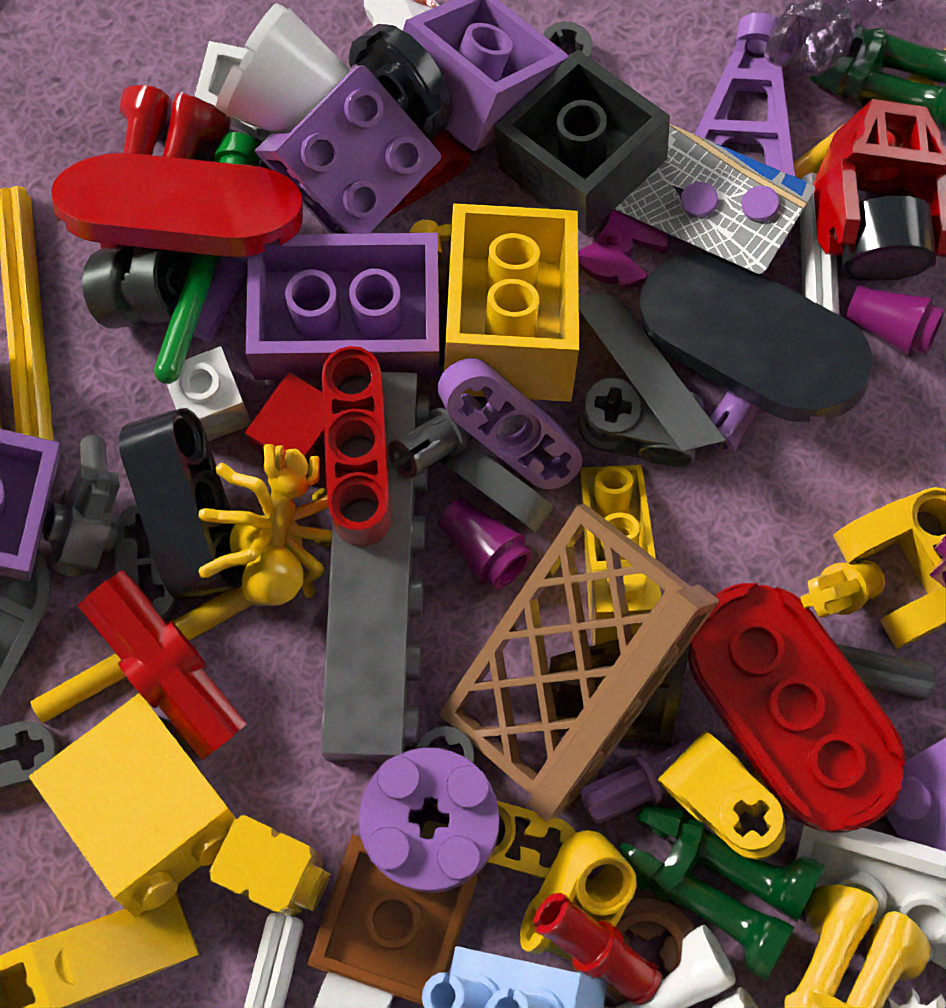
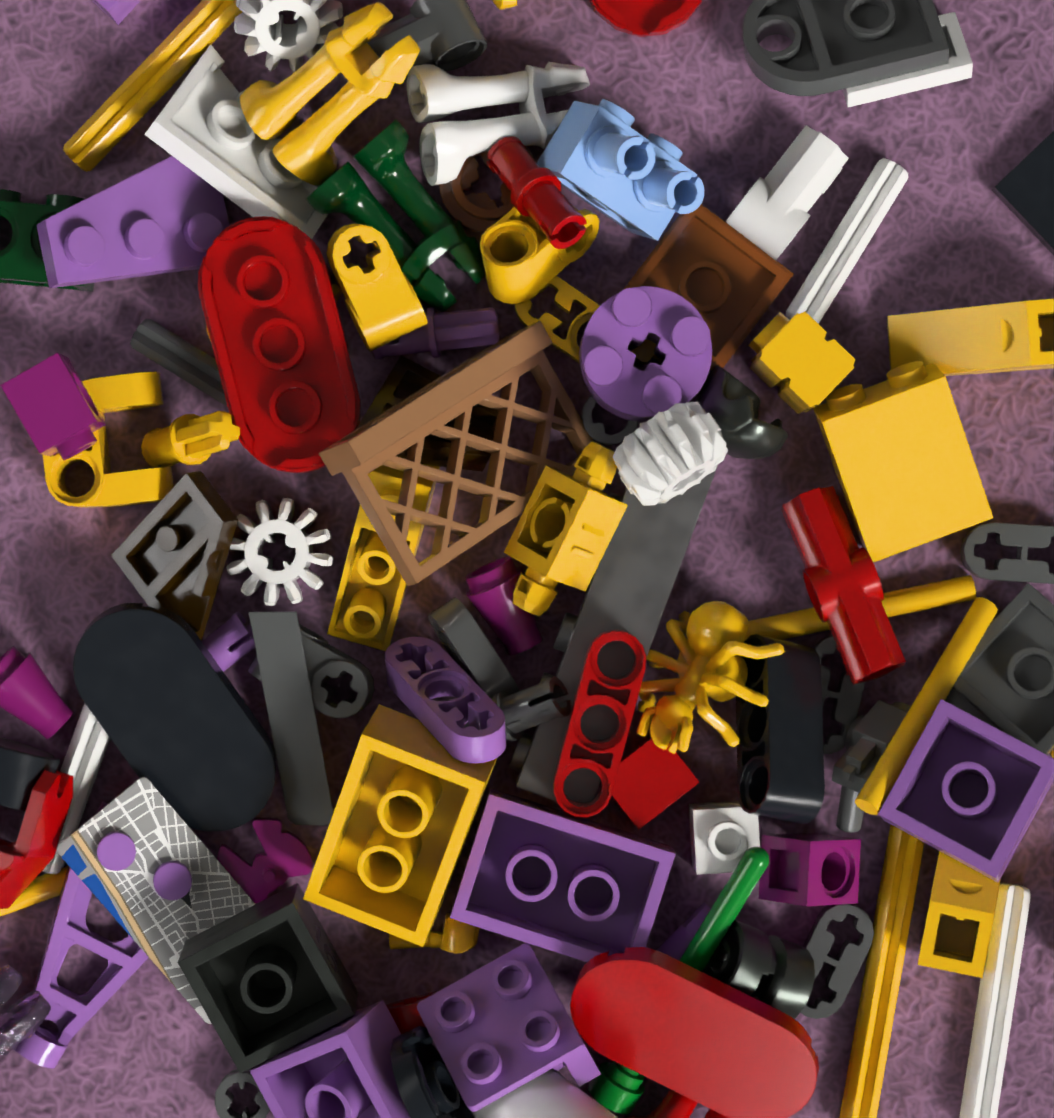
camera: 165 degrees left, 15 degrees up
(45, 573) = (935, 688): none -> yellow bar
(60, 332) = (847, 962): none -> dark grey beam
(115, 389) = (810, 869): none -> magenta brick
(322, 789) = (736, 413): none -> pearl dark grey hair
(371, 721) = (670, 453): none -> white gear
(451, 624) = (565, 529): none -> yellow piece
(702, 534) = (295, 538): none -> white gear
(807, 483) = (181, 550): none -> dark brown wing

